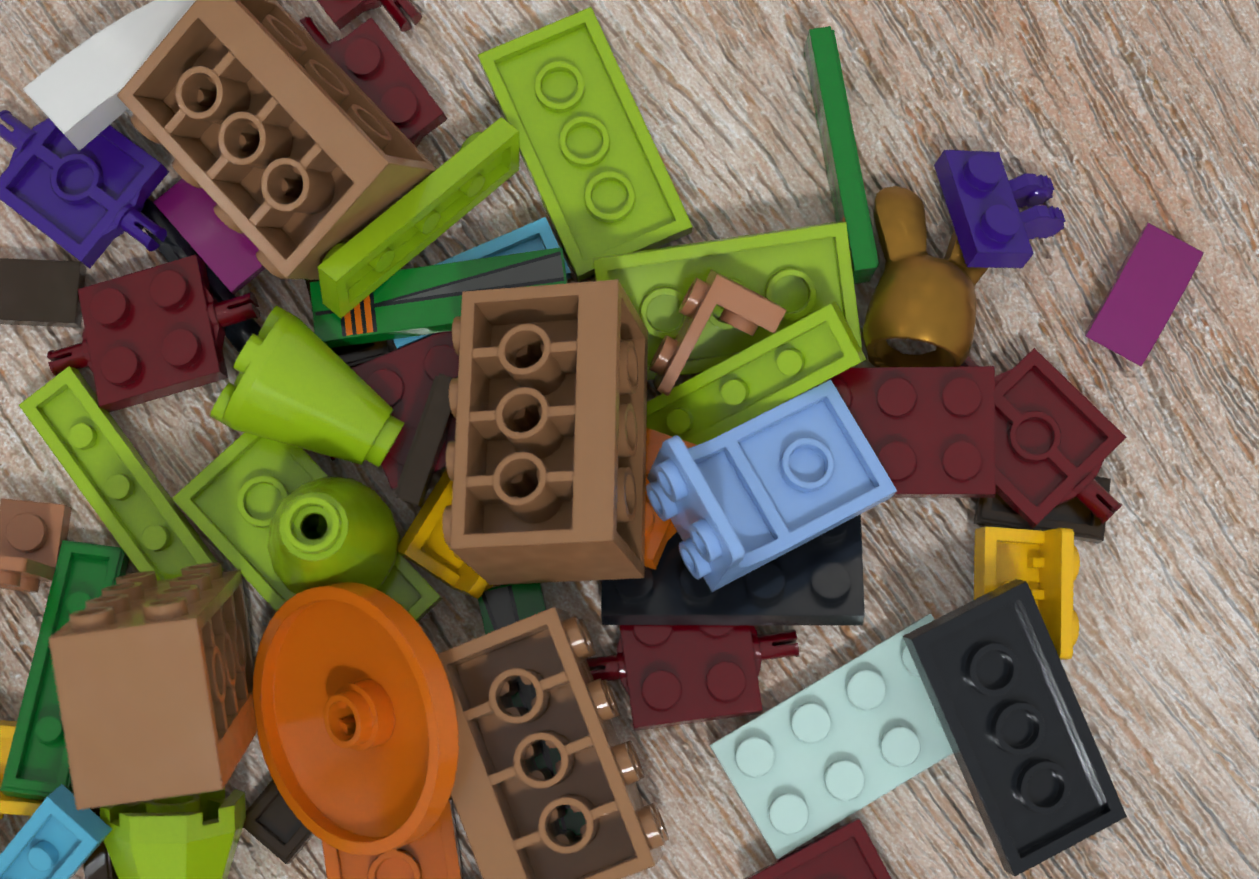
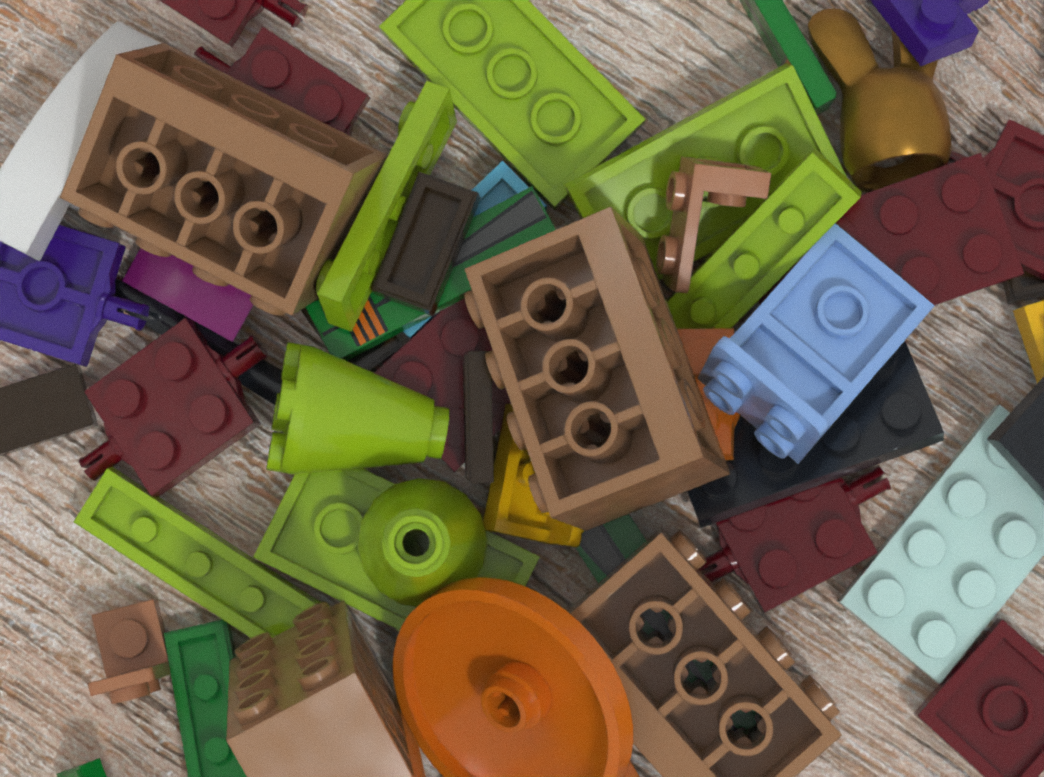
camera: 15 degrees left, 5 degrees up
(442, 264) = (426, 243): none -> dark brown tile

